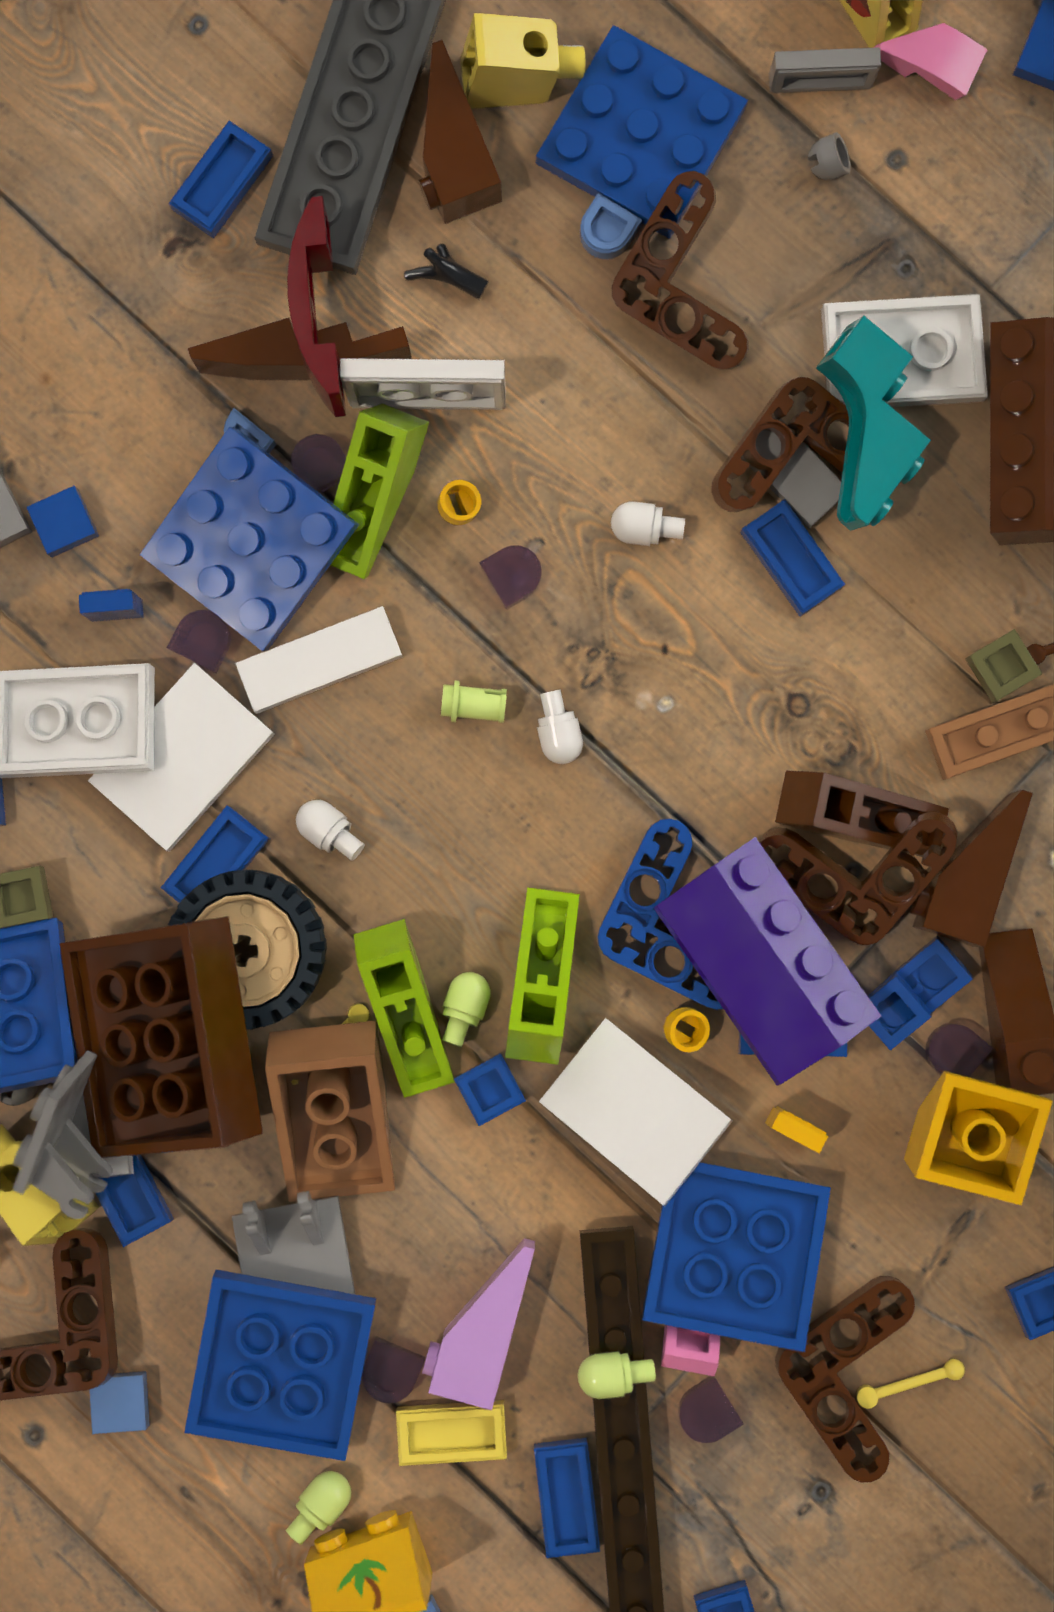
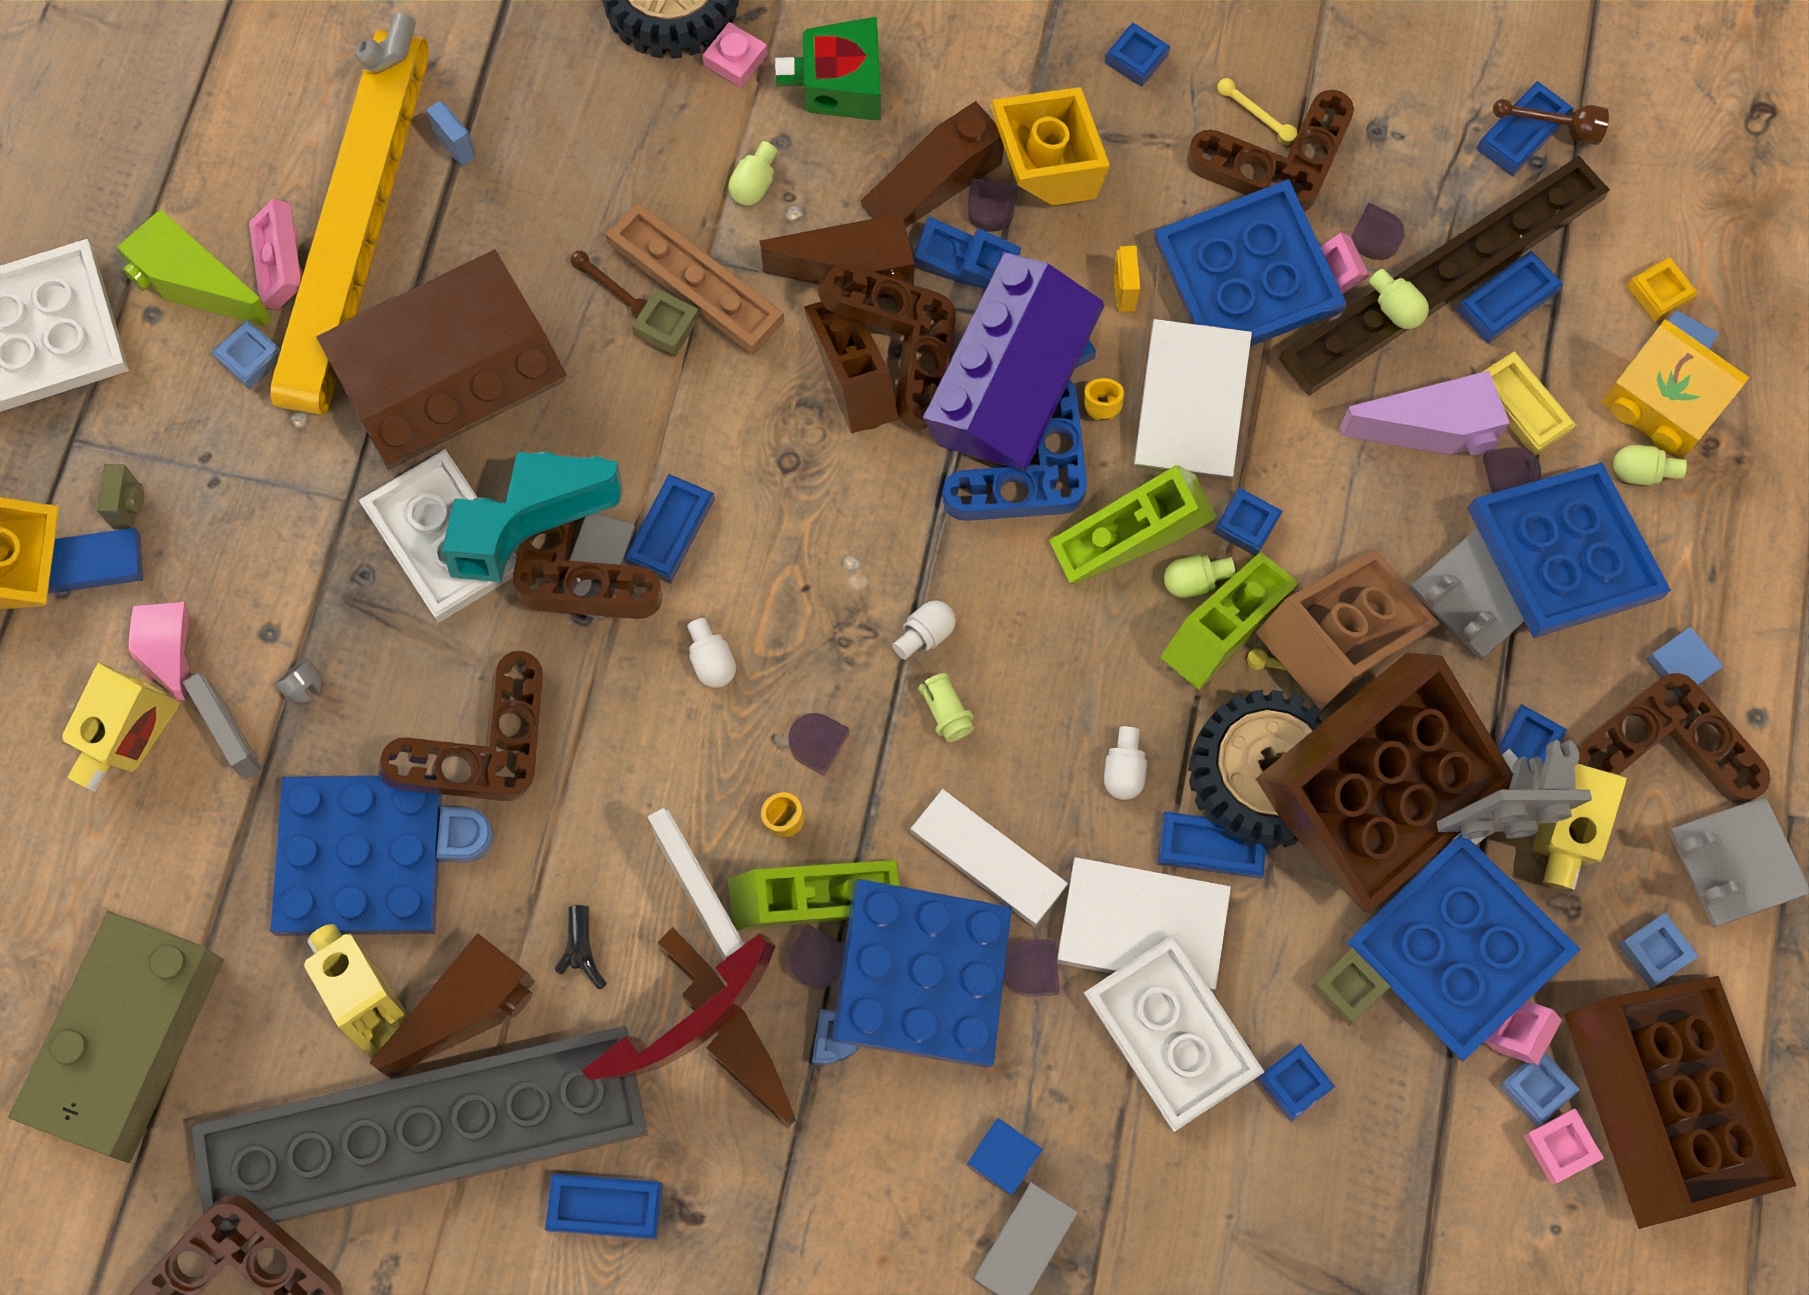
camera: 125 degrees left, 15 degrees down
(110, 605) = (1053, 1060): blue tile -> none

